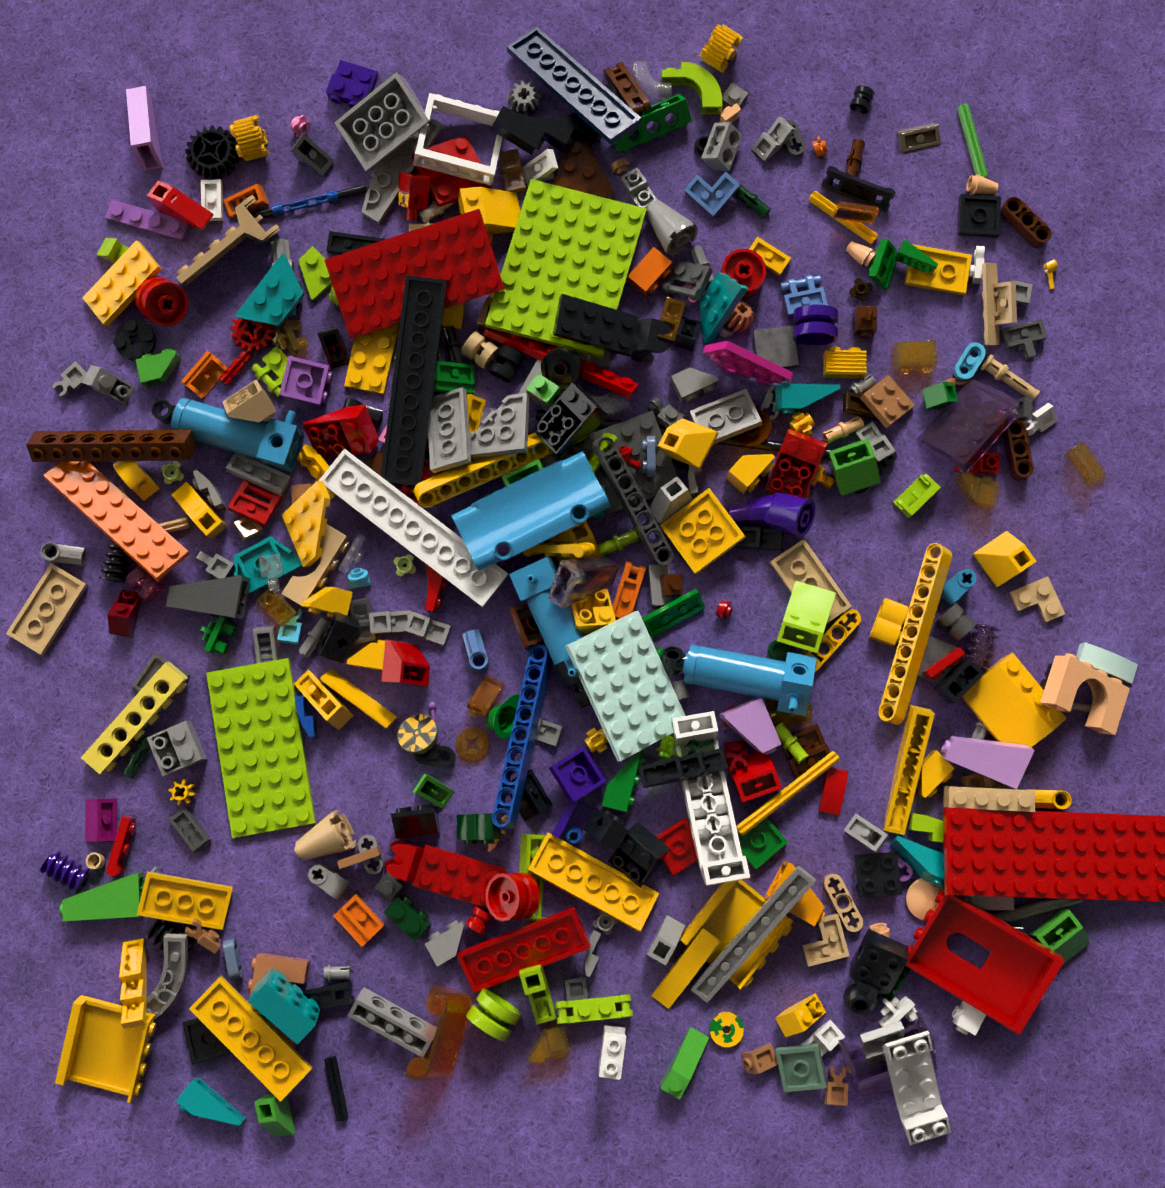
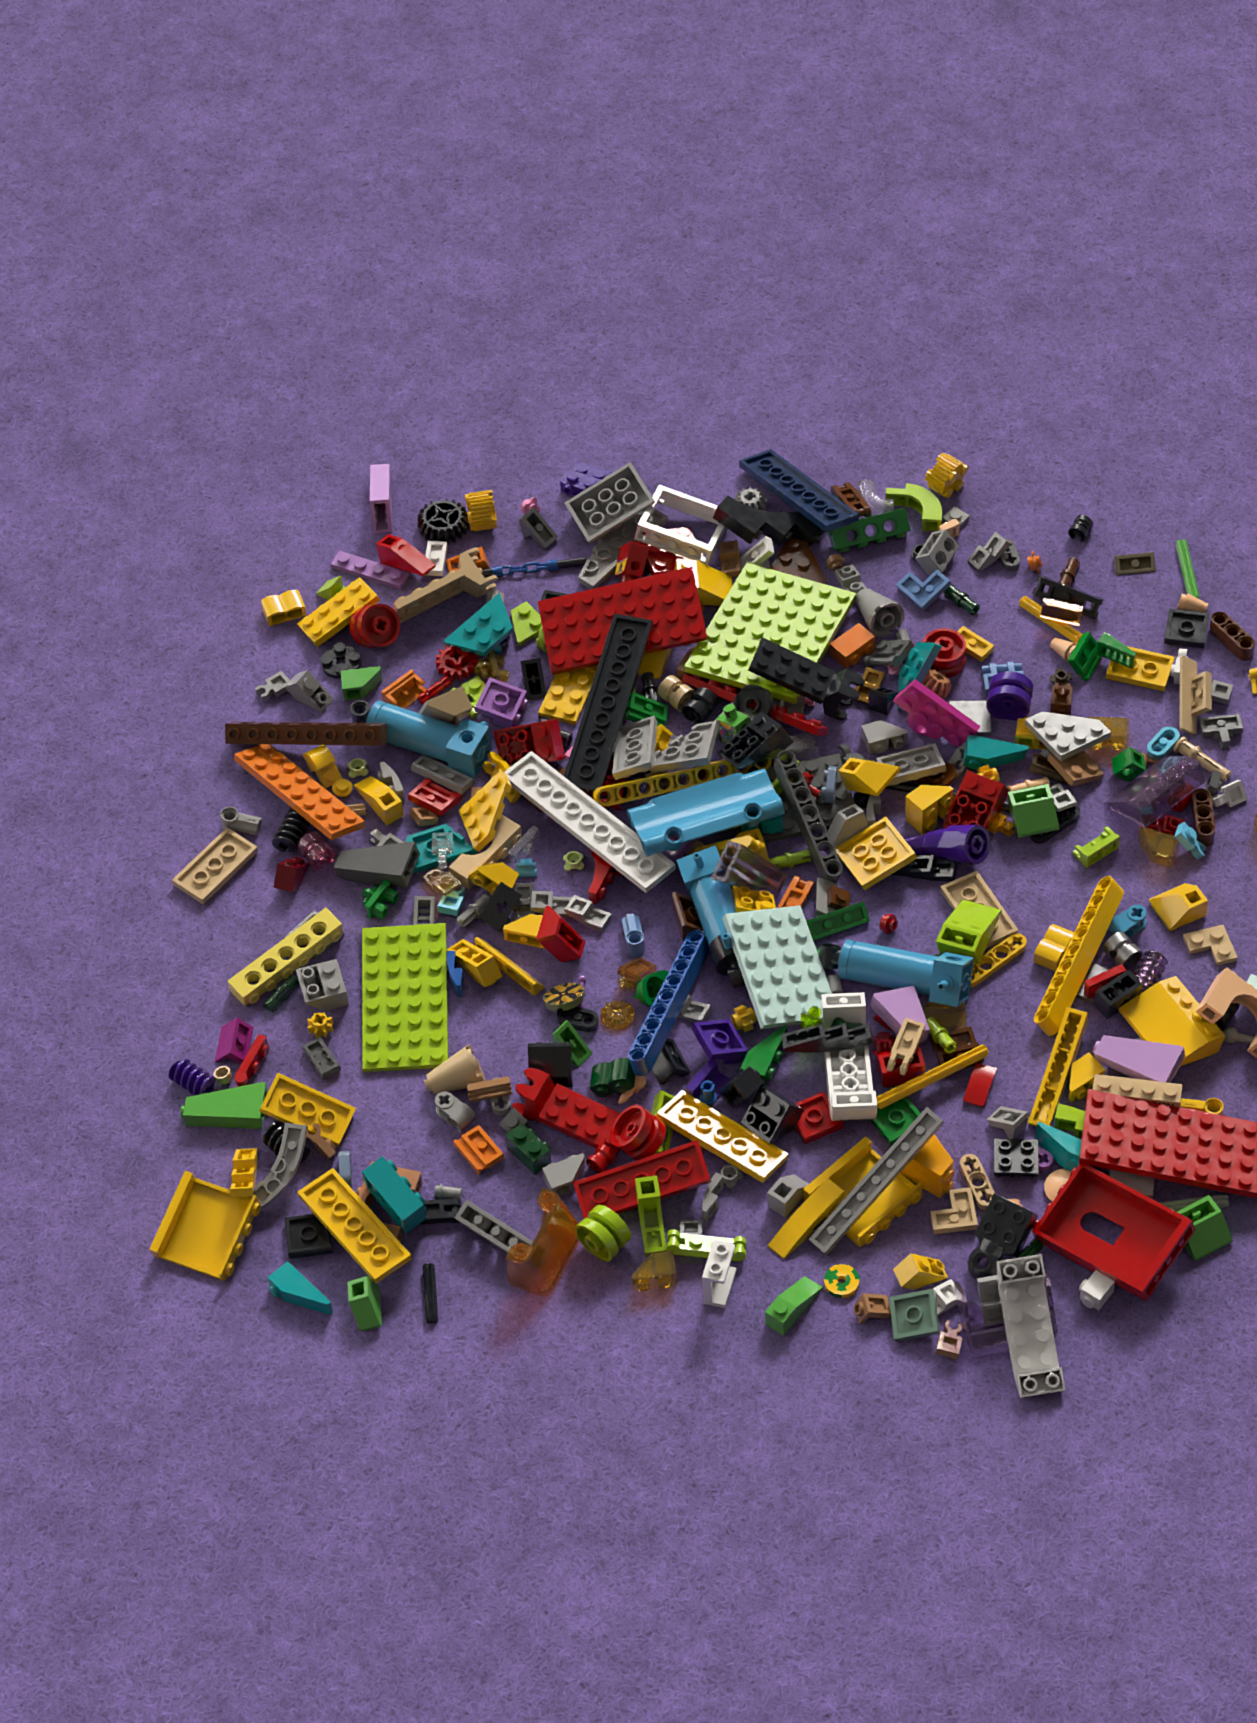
camera: 10 degrees right, 30 degrees down
(64, 279) = (283, 607): none -> yellow brick
(160, 499) = (342, 787): none -> yellow plate
(762, 771) = (906, 1044): none -> tan hinge
(877, 368) = (1067, 734): none -> plate
(1007, 482) = (1188, 839): none -> medium azure plate

